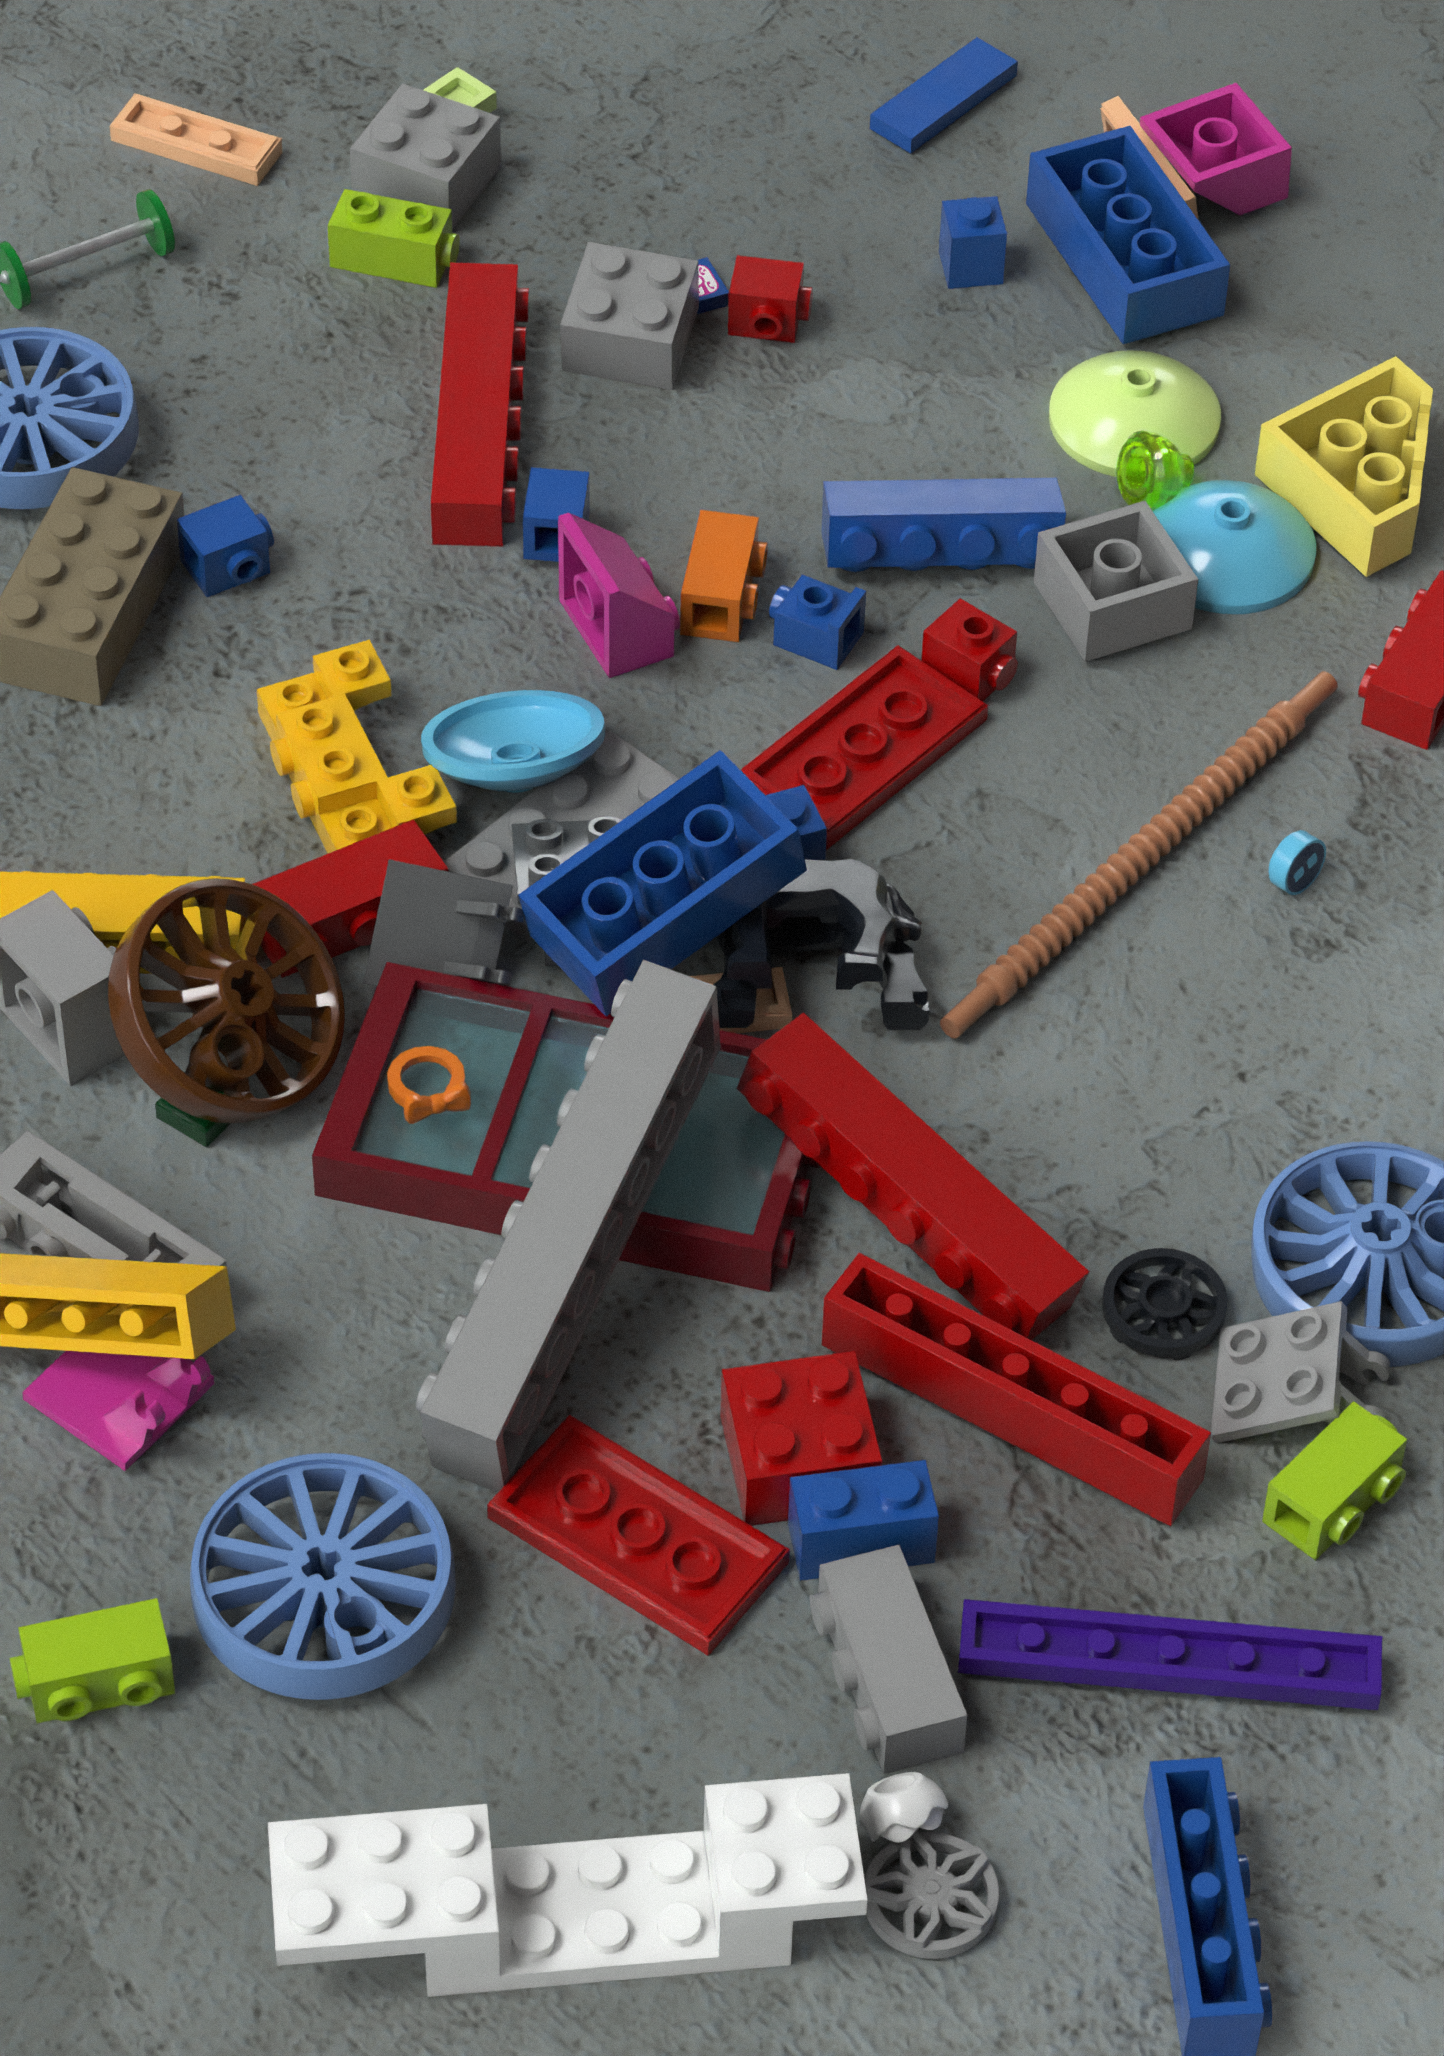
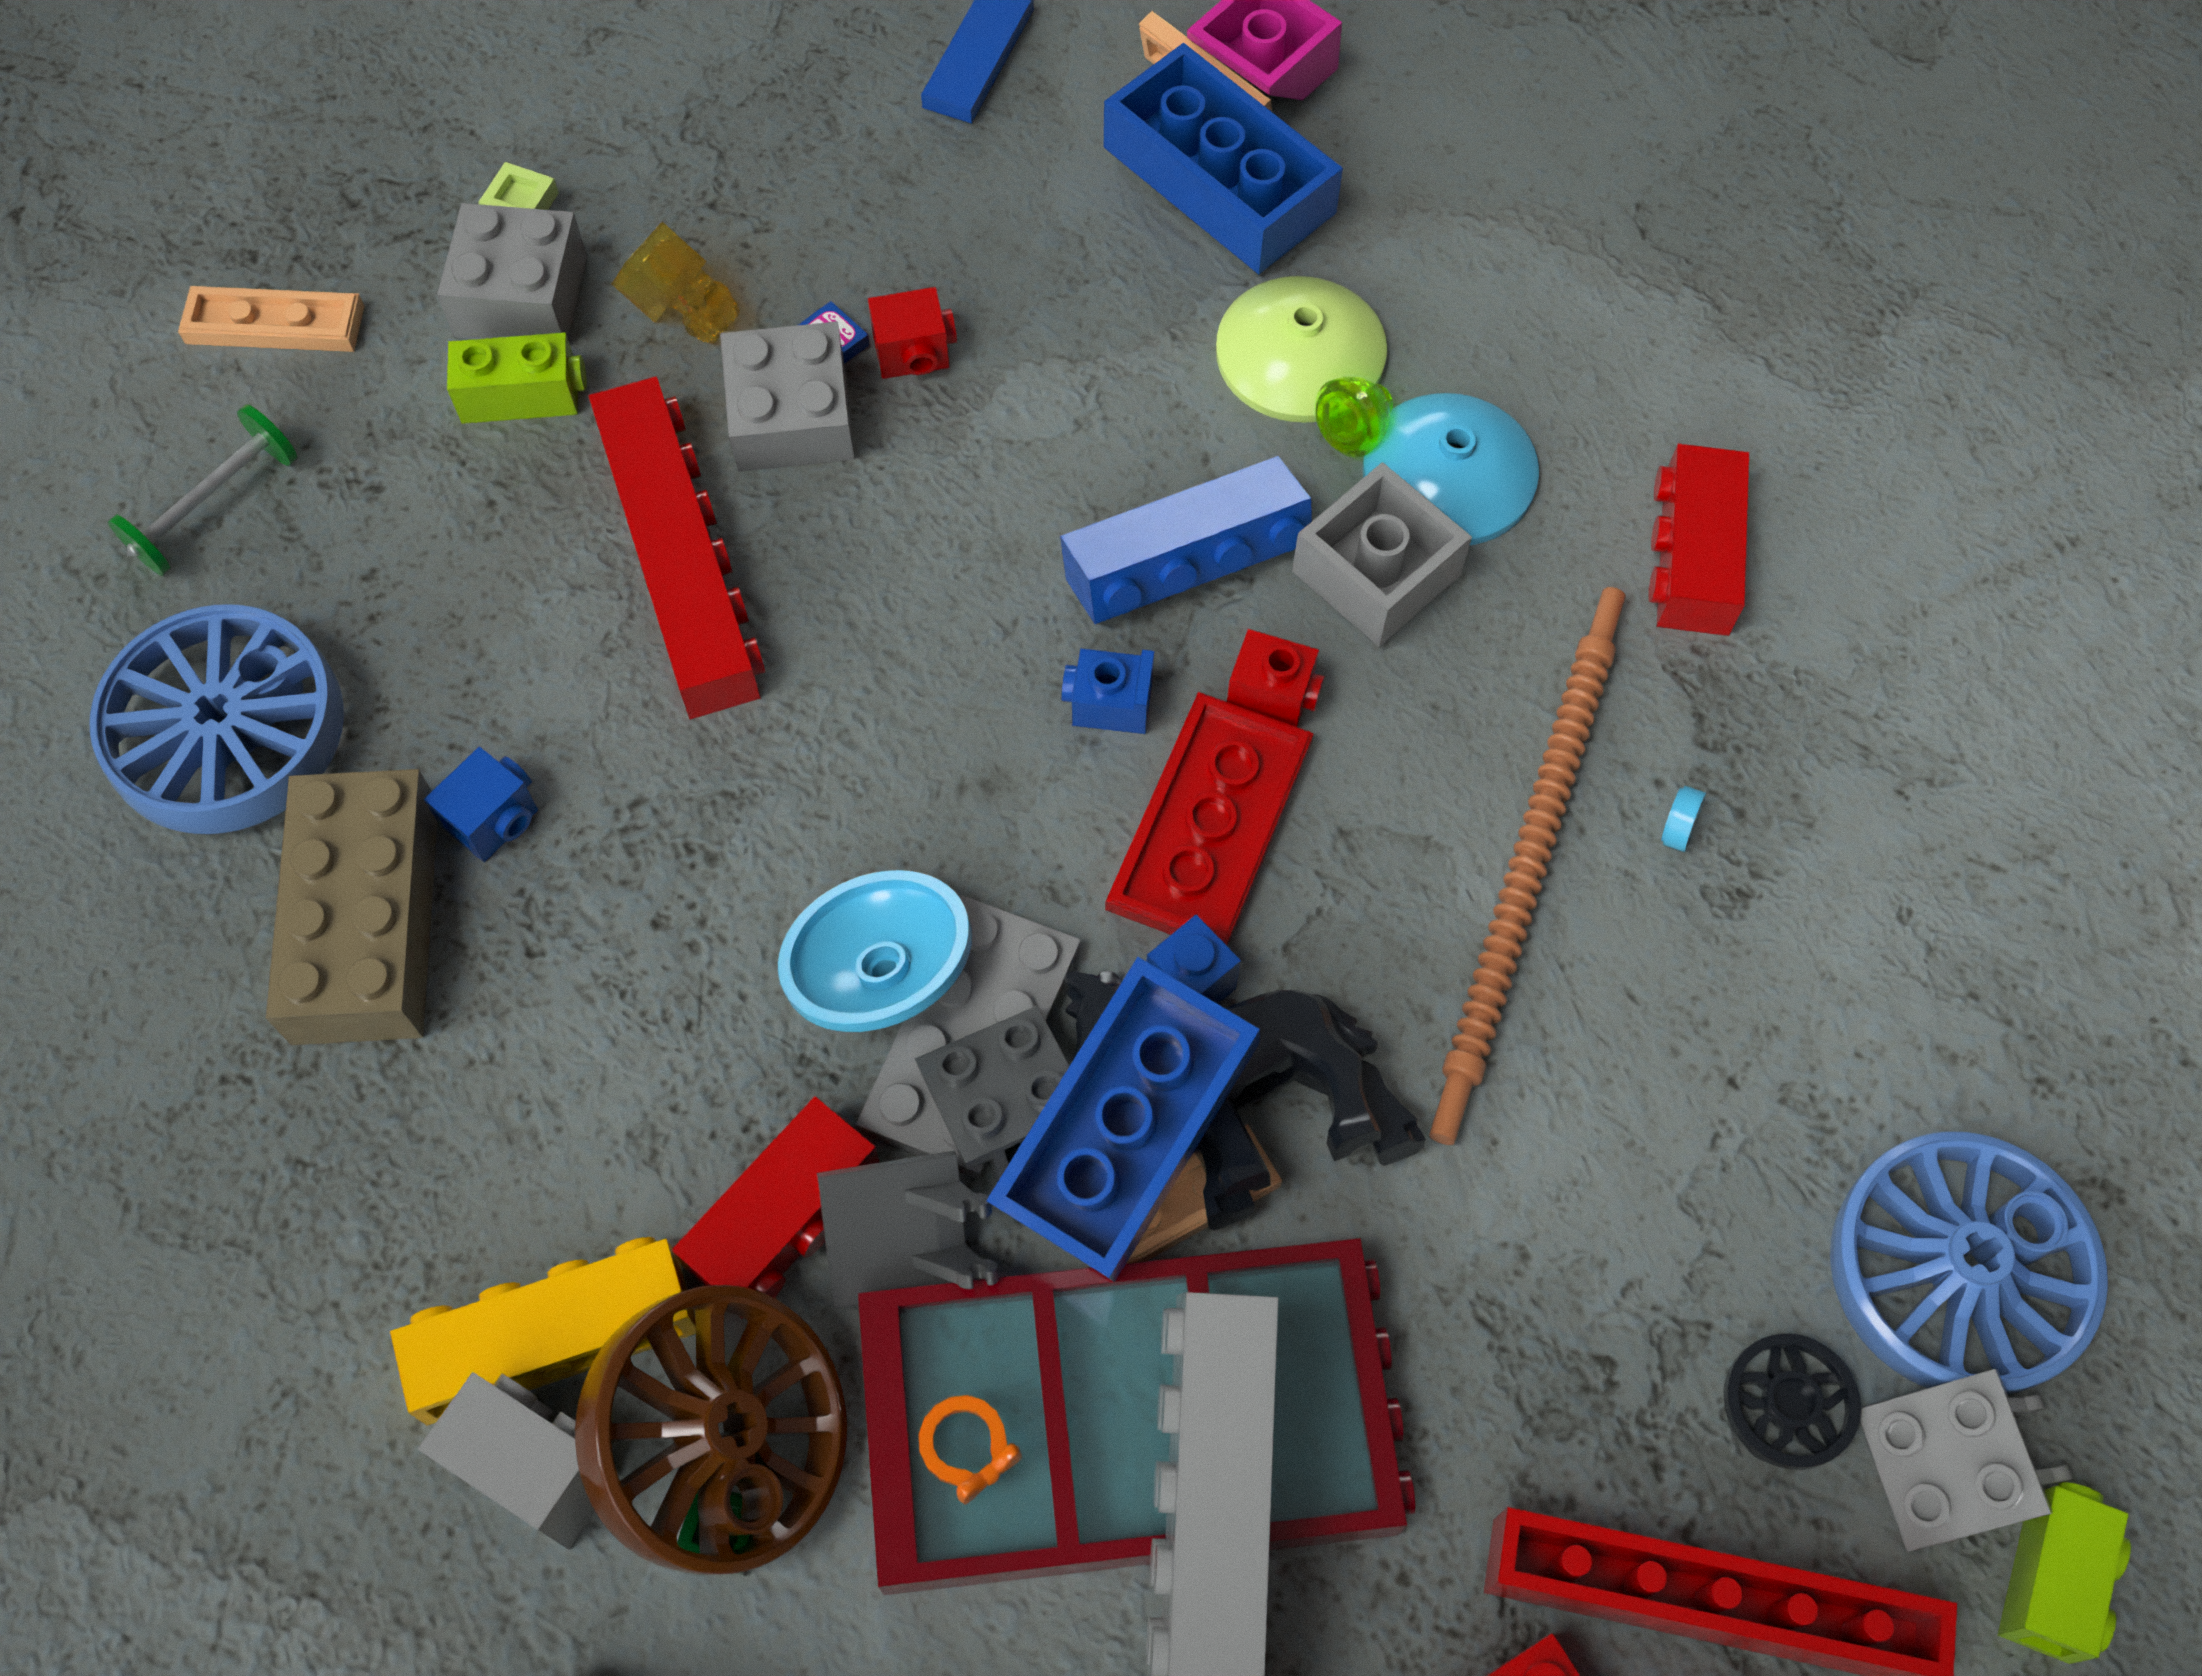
camera: 20 degrees left, 15 degrees up
(332, 760) = (698, 1040): yellow bracket -> none
(547, 497) = (808, 656): blue brick -> none
(565, 192) = (670, 275): none -> clear yellow brick
(613, 598) = (905, 738): dark pink slope -> none
(720, 576) = (996, 670): orange brick -> none
(911, 1179) = (1511, 1379): red brick -> none
(972, 242) = (1079, 208): blue brick -> none
(1354, 462) = (1545, 346): light yellow brick -> none

